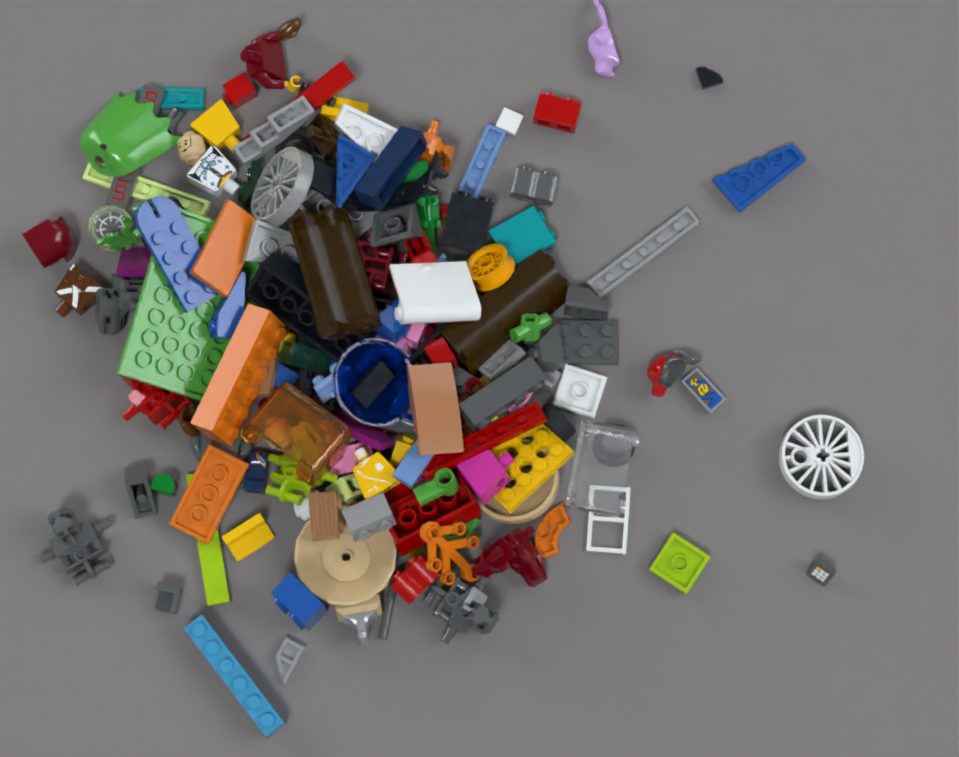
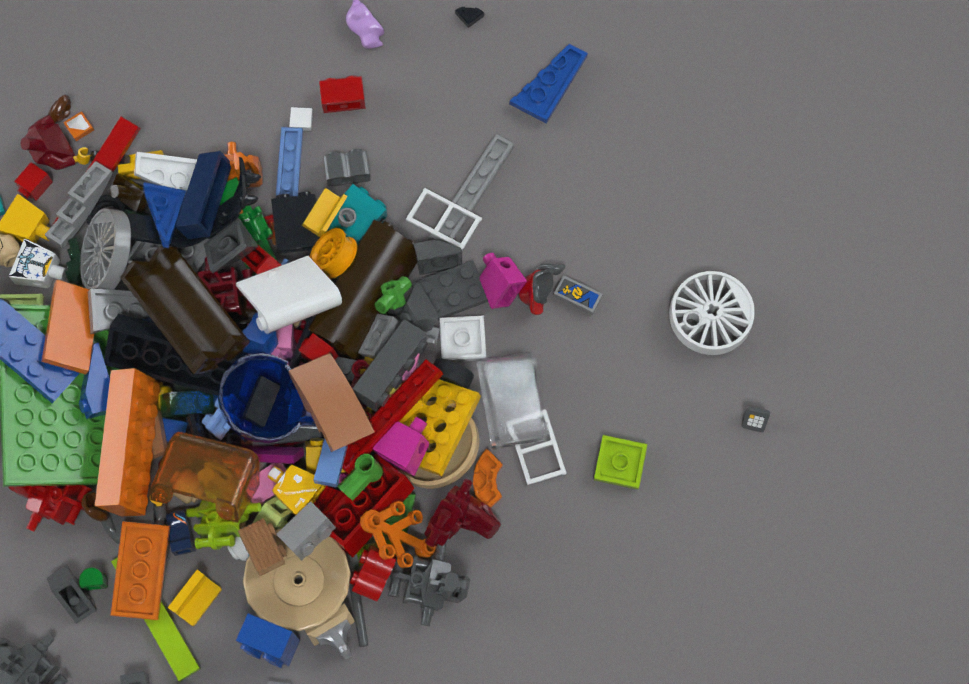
camera: 20 degrees left, 5 degrees down
(299, 51) = (78, 126): none -> tile
(496, 224) = (323, 212): none -> yellow panel
(519, 237) = (350, 216): none -> light grey hinge
(593, 279) = (435, 232): none -> white window
(636, 351) = (501, 280): none -> dark pink torso

